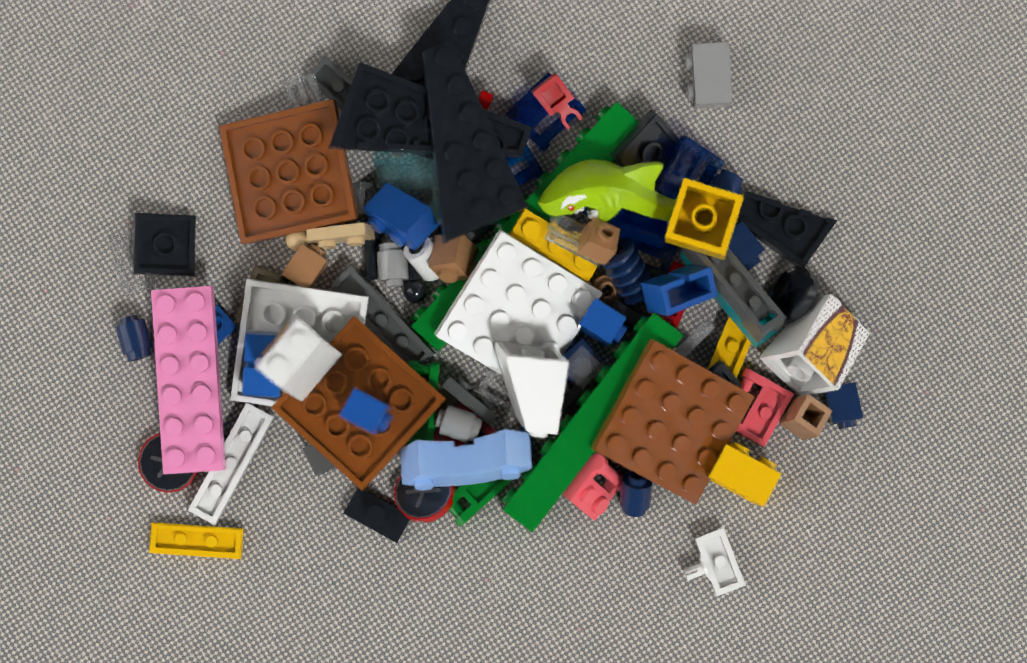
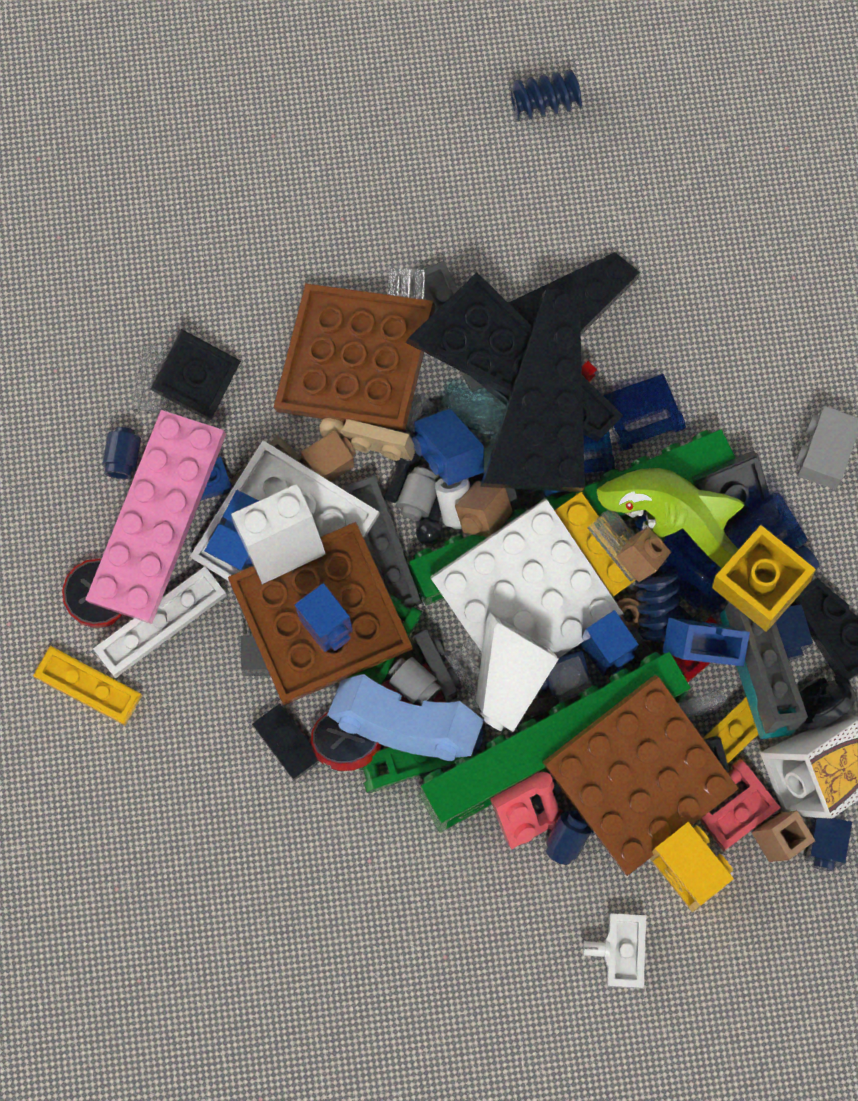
camera: 20 degrees right, 10 degrees down
(555, 97) = (659, 397): red plate -> none

